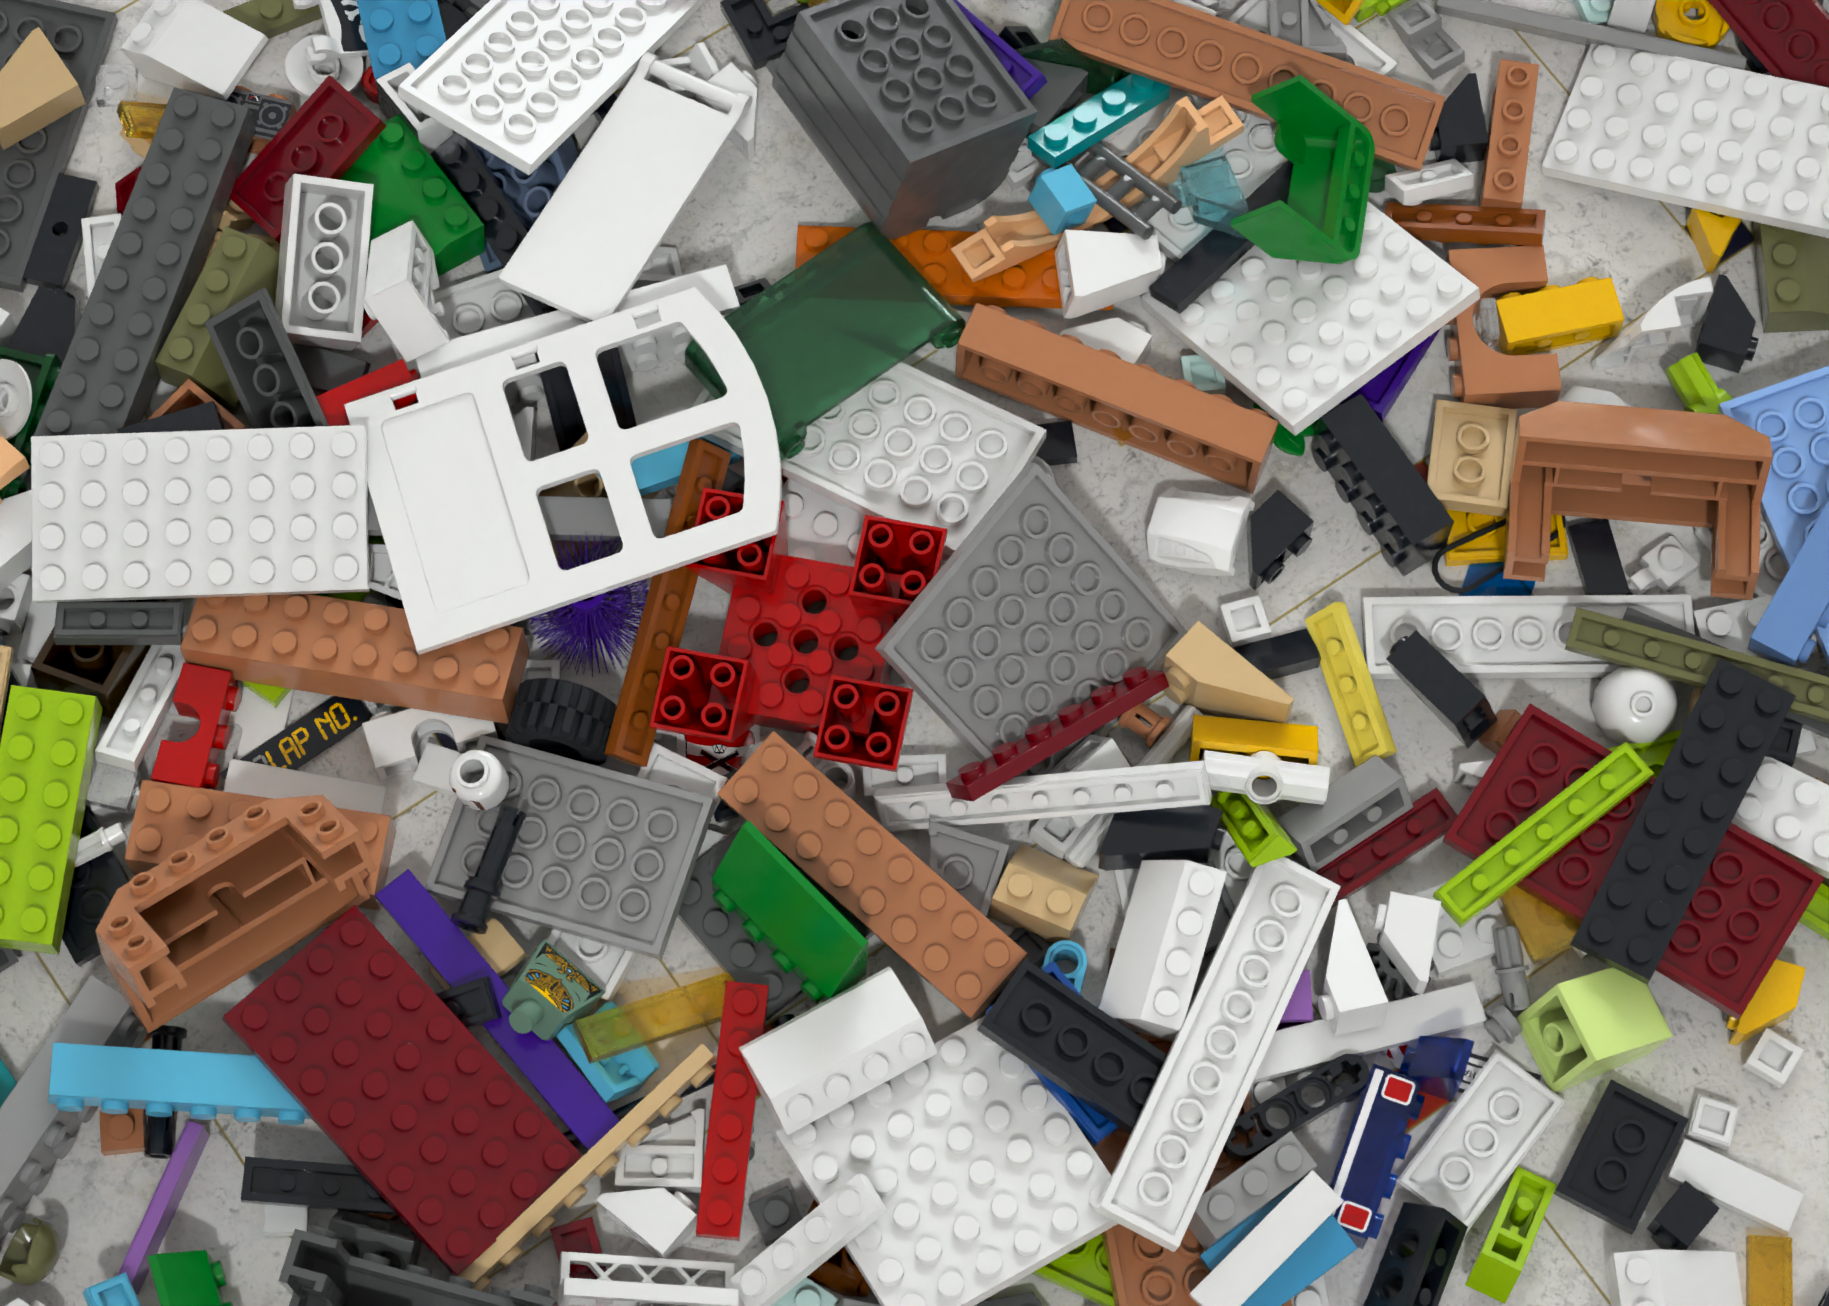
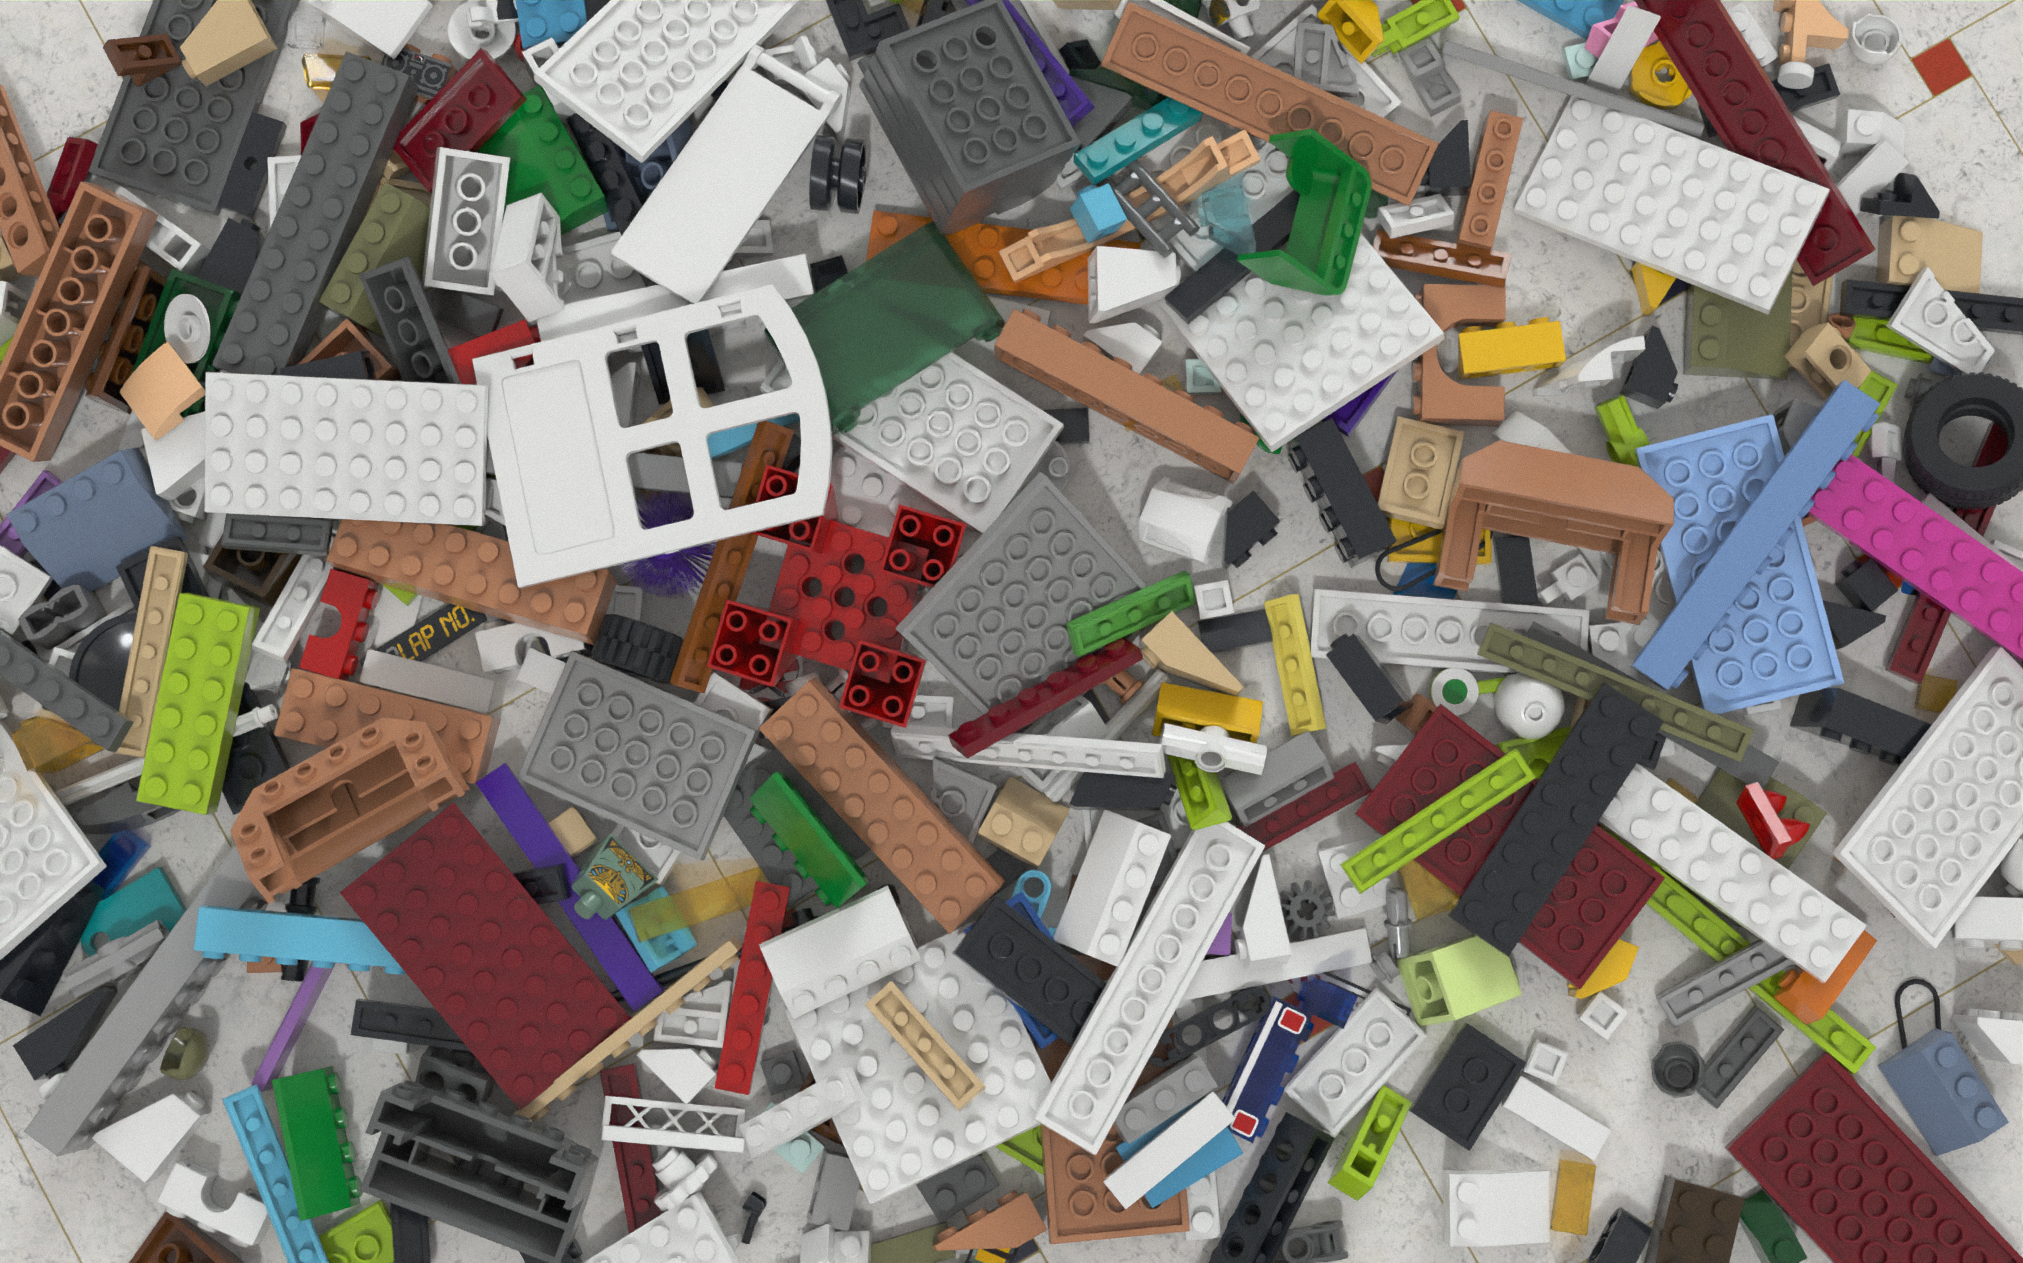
camera: 10 degrees right, 15 degrees up
(479, 780) = (564, 697): white head -> none
(483, 888) = (562, 788): black pin -> none
(754, 184) = (835, 174): none -> black wheel
(955, 1145) = (925, 1046): none -> tan plate
(1145, 638) = (1131, 613): none -> bright green tile
(1409, 935) = (1316, 896): white slope -> none
(1551, 694) = (1459, 689): none -> piece
(1682, 1218) = (1509, 1144): black brick -> none

